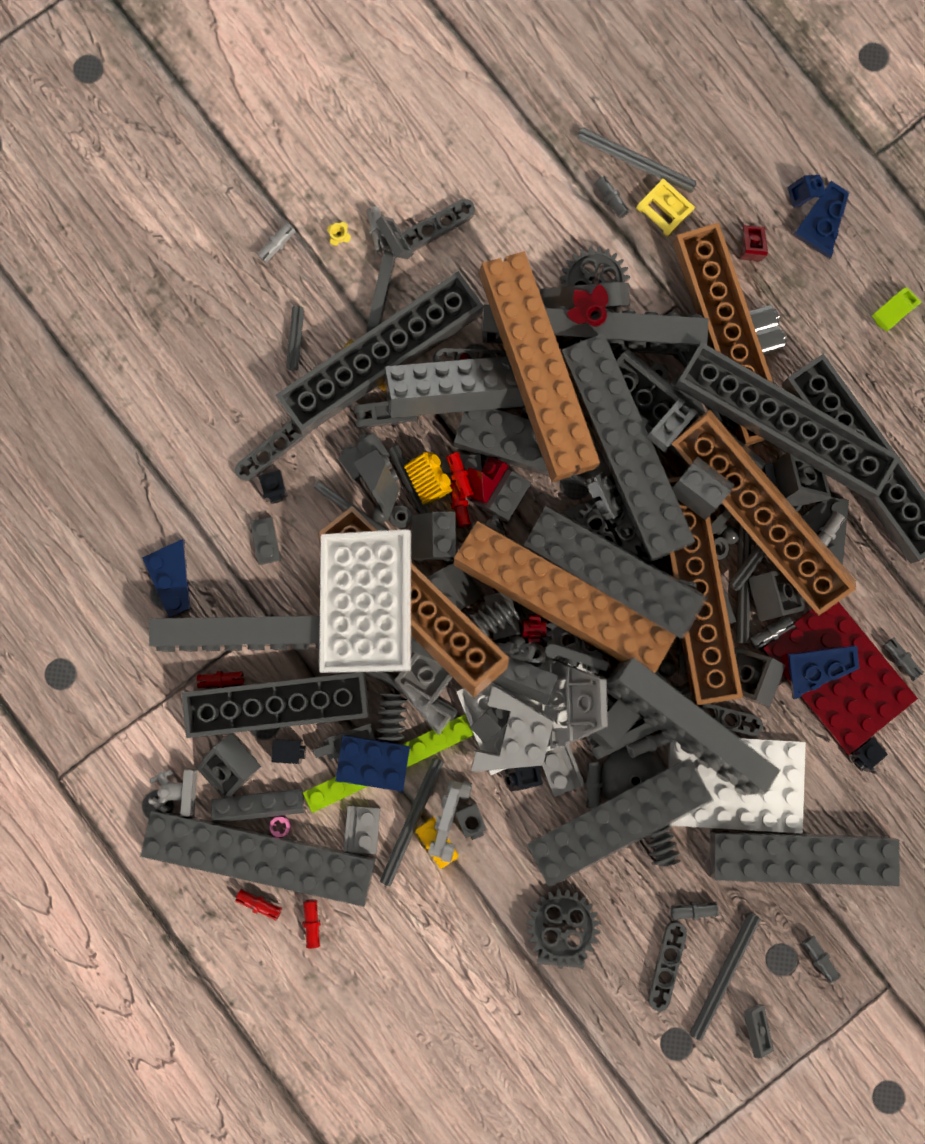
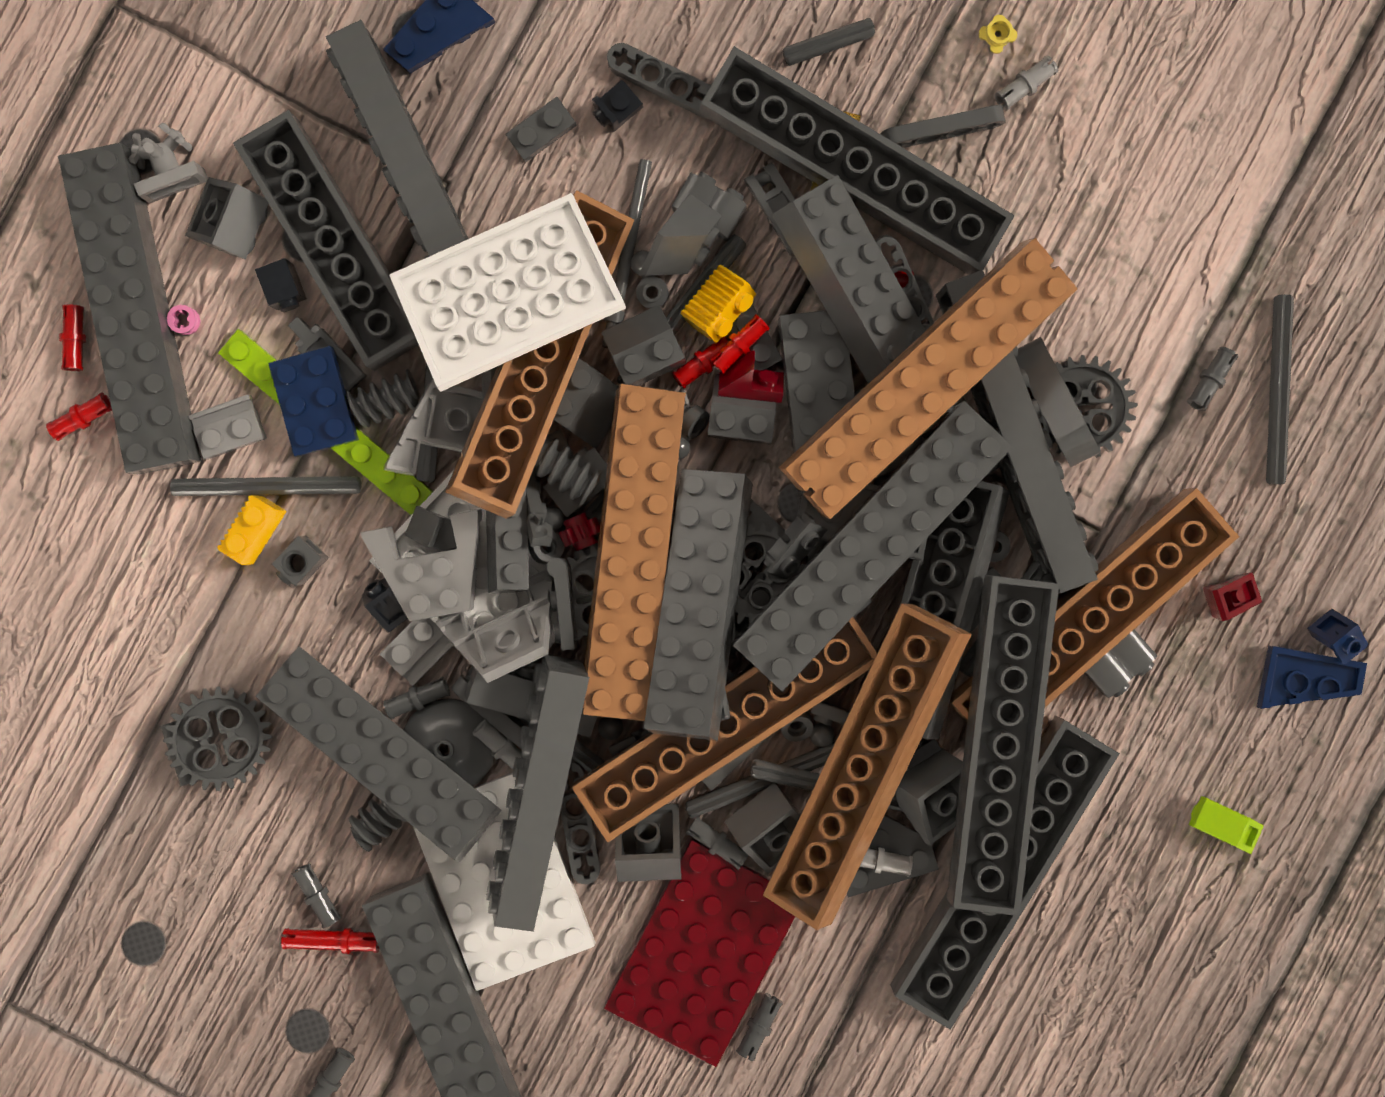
camera: 65 degrees right, 5 degrees up
(220, 679) = (333, 154): red pin -> none
(257, 806) = (194, 278): dark grey plate -> none
(398, 245) = (1024, 109): dark grey plate -> none
(440, 229) = (1071, 155): dark grey beam -> none
(443, 823) = (304, 523): light grey plate -> none
(588, 304) = (1044, 409): dark red plate -> none
(665, 965) = (233, 890): dark grey beam -> none
(670, 202) = (1239, 461): light yellow plate -> none
(671, 424) = (927, 593): dark grey plate -> none
(702, 488) = (859, 670): dark grey slope -> none
(725, 976) = (253, 969): dark grey axle -> none
(728, 914) = (329, 940): none -> red pin
(758, 1031) = (203, 1040): dark grey plate -> none
(816, 667) = (696, 921): dark blue wing -> none
(868, 755) = (614, 1034): black bracket -> none

